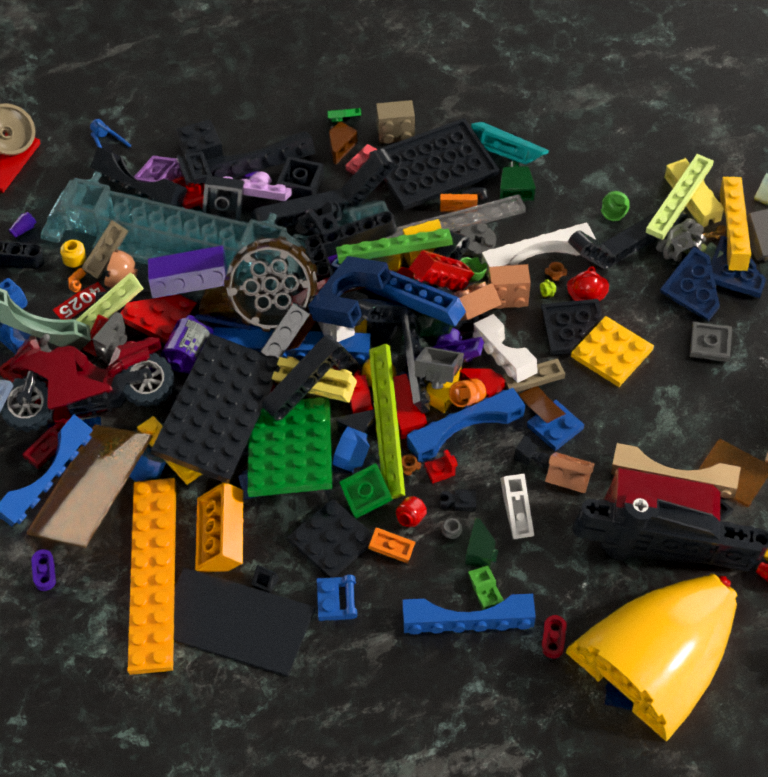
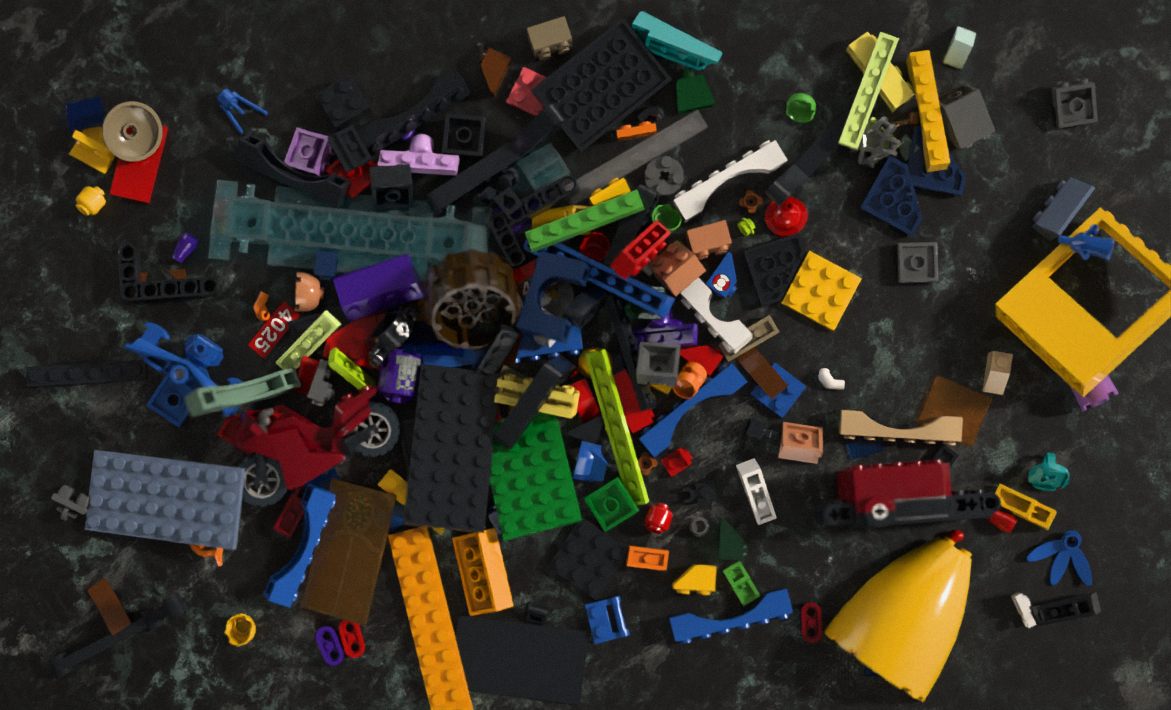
camera: 15 degrees left, 30 degrees up
(68, 568) = (351, 637): none -> red plate
(73, 253) = (246, 273): yellow head -> none
(104, 248) = (284, 271): dark tan plate -> none
(133, 320) = (349, 370): none -> lime plate
(145, 247) = (326, 264): none -> dark blue brick
(188, 301) = (390, 333): none -> black piece
(336, 115) = (487, 33): green wing -> none
(437, 568) = (696, 578): none -> yellow slope
(517, 323) = (723, 278): none -> blue slope
(608, 426) = (828, 381): none -> white arm

